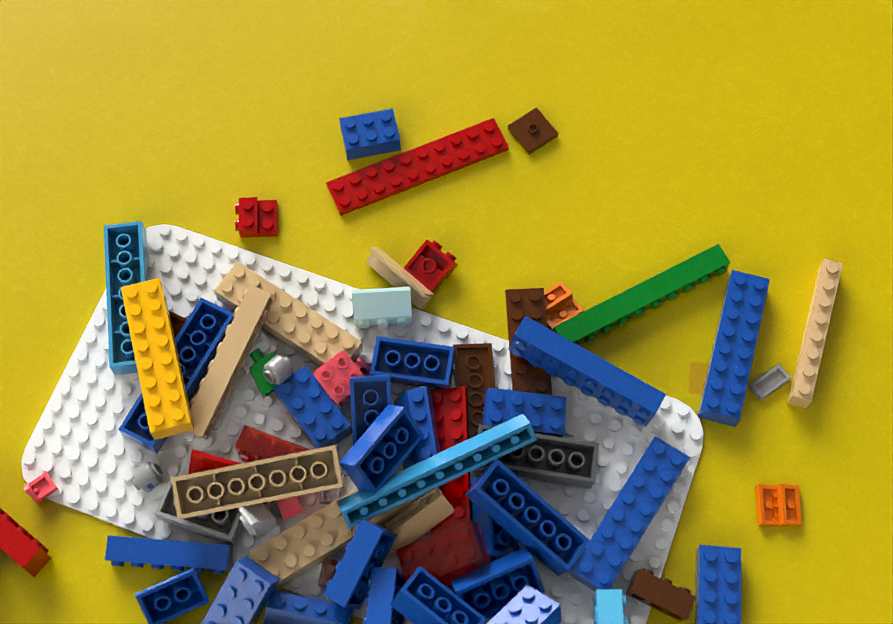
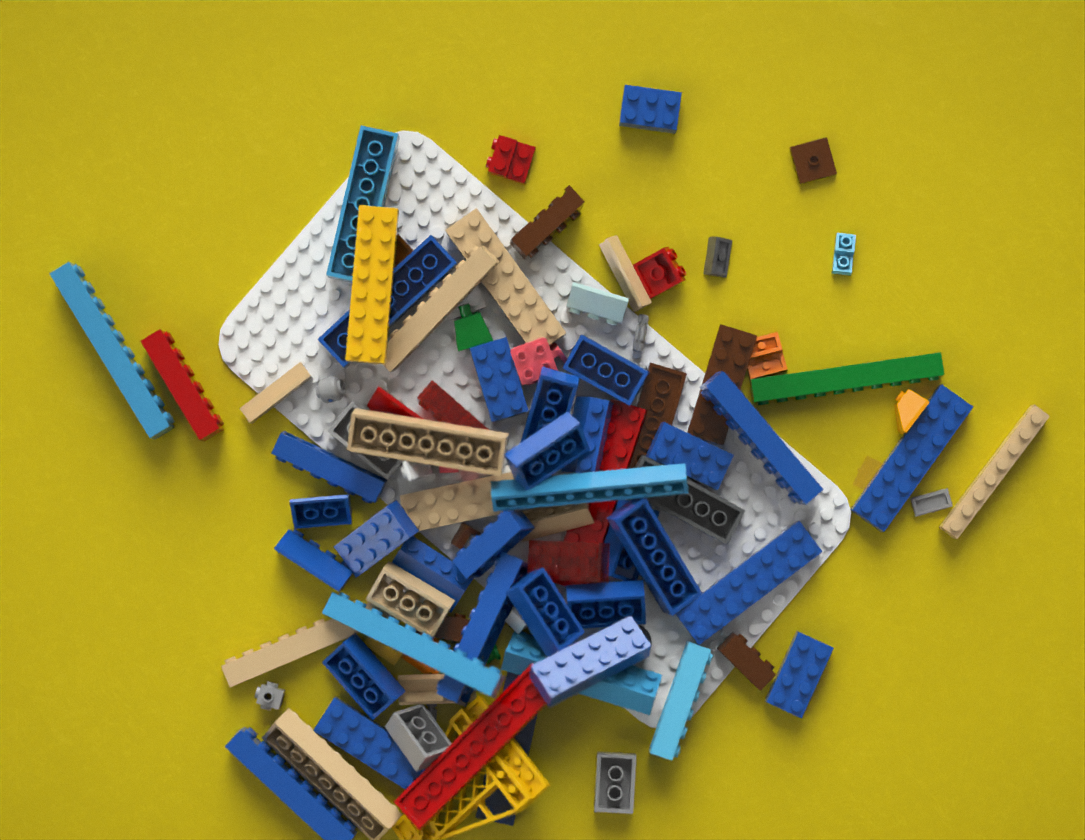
camera: 20 degrees right, 20 degrees up
(40, 488) = (231, 363): coral tile -> none
(93, 501) = (276, 393): none -> tan panel
(278, 370) = (479, 335): light grey head -> none
(310, 255) = (548, 223): none -> reddish brown wedge
(417, 166) = (685, 158): red plate -> none
(433, 323) = (640, 333): none -> light grey axle
(479, 237) = (717, 257): none -> flat silver slope
(592, 196) = (843, 254): none -> medium azure slope
(711, 303) = (908, 409): none -> light orange slope
(778, 505) = (887, 618): orange slope -> none

